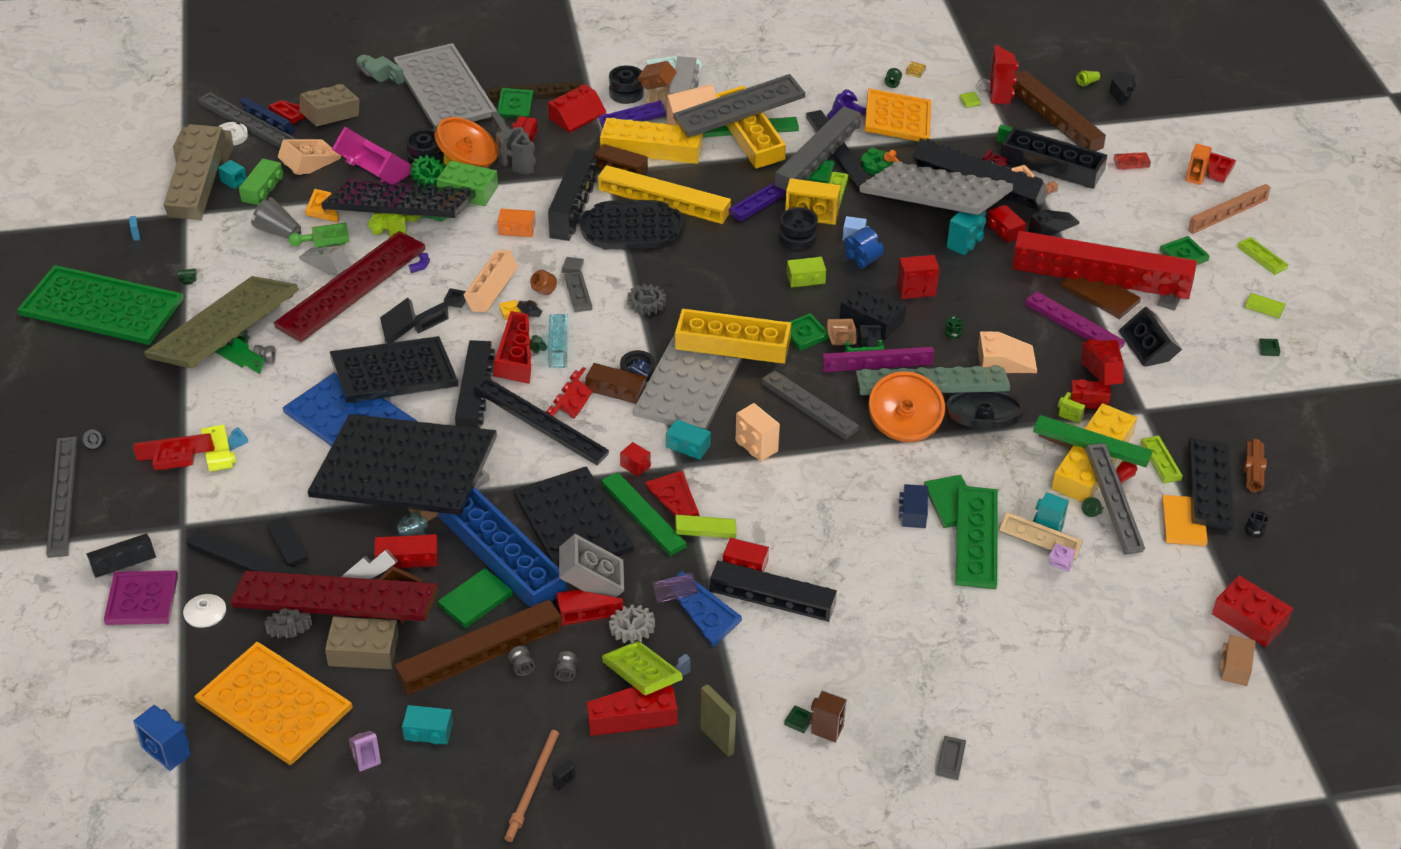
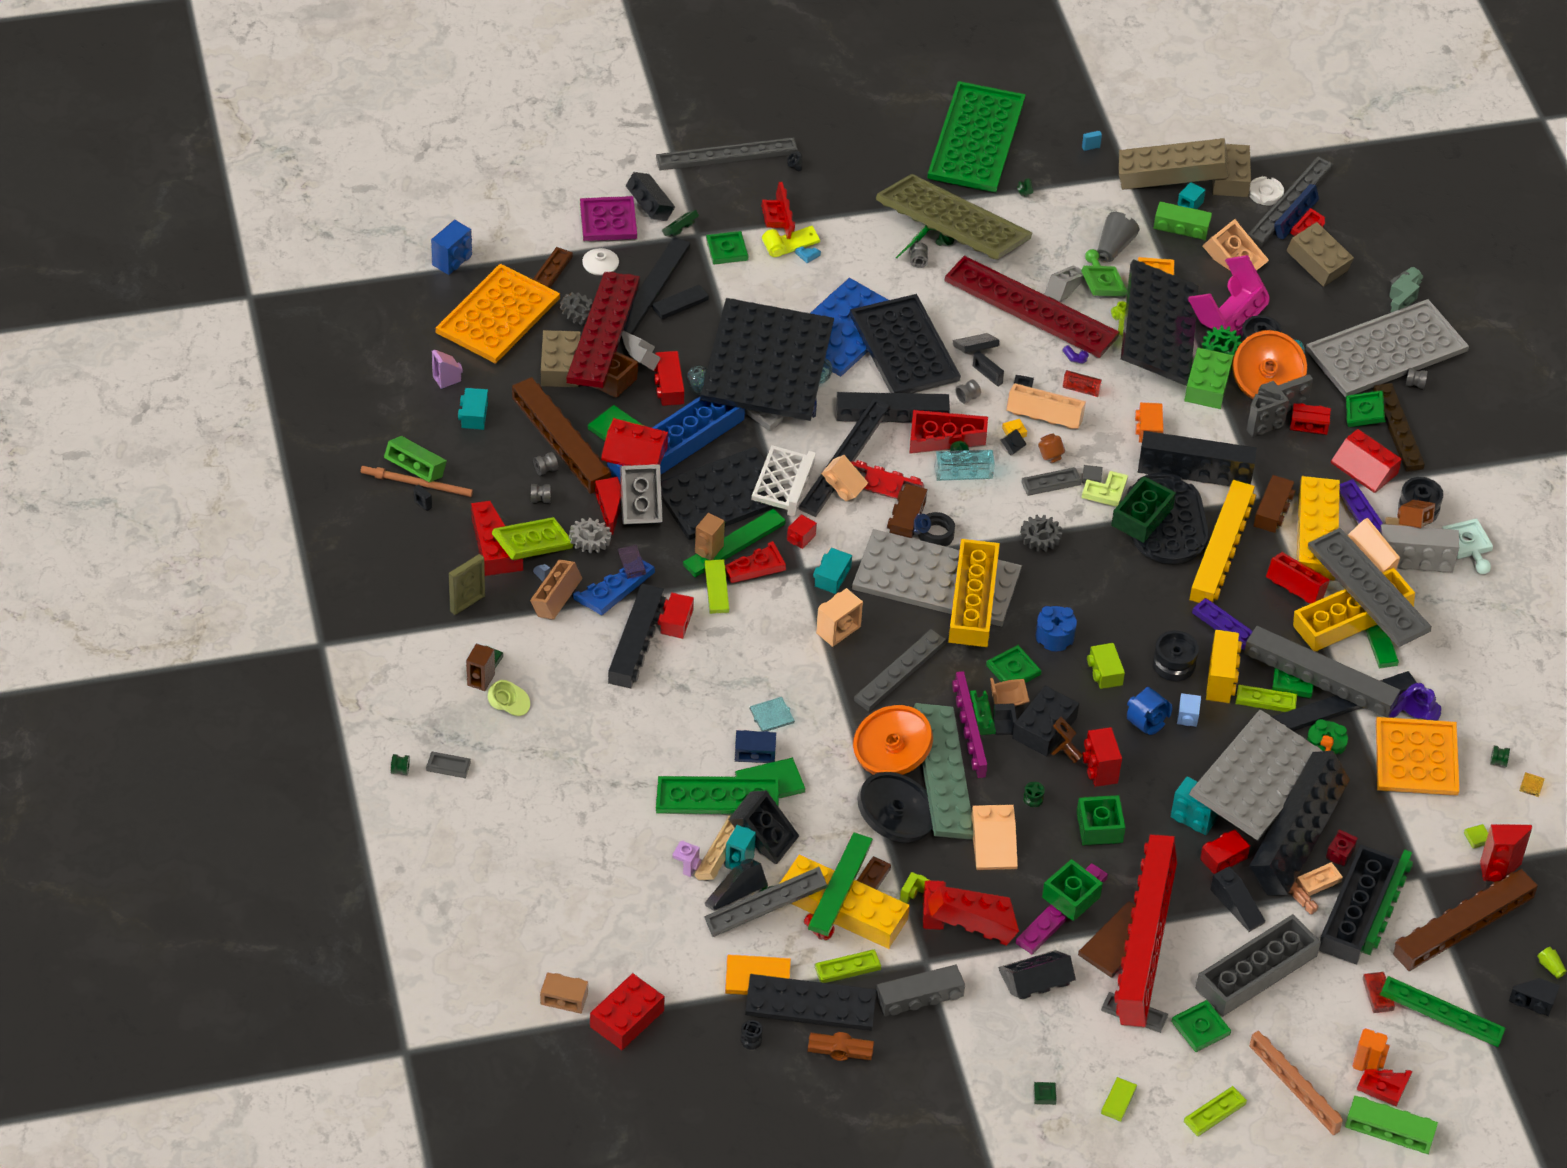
camera: 85 degrees right, 5 degrees up
(167, 534) = (685, 220): none -> dark green plate
(205, 652) = (553, 267): none -> reddish brown tile
(211, 501) = (727, 247): none -> green tile
(459, 333) = (968, 391): none -> flat silver wheel
(460, 259) = (1082, 383): none -> clear red plate
(484, 73) = (1416, 378): none -> flat silver wheel
(505, 779) = (415, 459): none -> bright green brick
(528, 565) = (634, 444): none -> red slope
(567, 455) = (797, 487): none -> white fence
(575, 418) = (844, 478): none -> light nougat brick
(597, 256) = (1107, 493): none -> yellowish green plate
(635, 225) = (1143, 509): none -> dark green brick
(654, 517) = (709, 536): none -> medium nougat brick
(711, 154) = (1297, 578): none -> red brick
(713, 651) = (556, 589): none -> medium nougat brick
(764, 296) = (1056, 627): none -> blue brick
(862, 701) = (508, 697): none -> yellowish green cap
(866, 497) = (772, 714): none -> clear light blue piece
(902, 296) = (1066, 745): none -> reddish brown bracket
(960, 797) = (400, 764): none -> dark green wheel
(985, 286) = (1100, 820): none -> green brick
(1016, 497) = (772, 828): none -> black slope
(1073, 301) = (1072, 890): none -> green brick
(1091, 525) = (739, 883): none -> black slope
(1123, 213) = (1258, 965): none -> dark grey brick
(1145, 131) = (1442, 1011): none -> green tile
(1183, 409) = (920, 990): none -> dark grey brick
(1255, 165) = (1391, 1124): none -> bright green brick

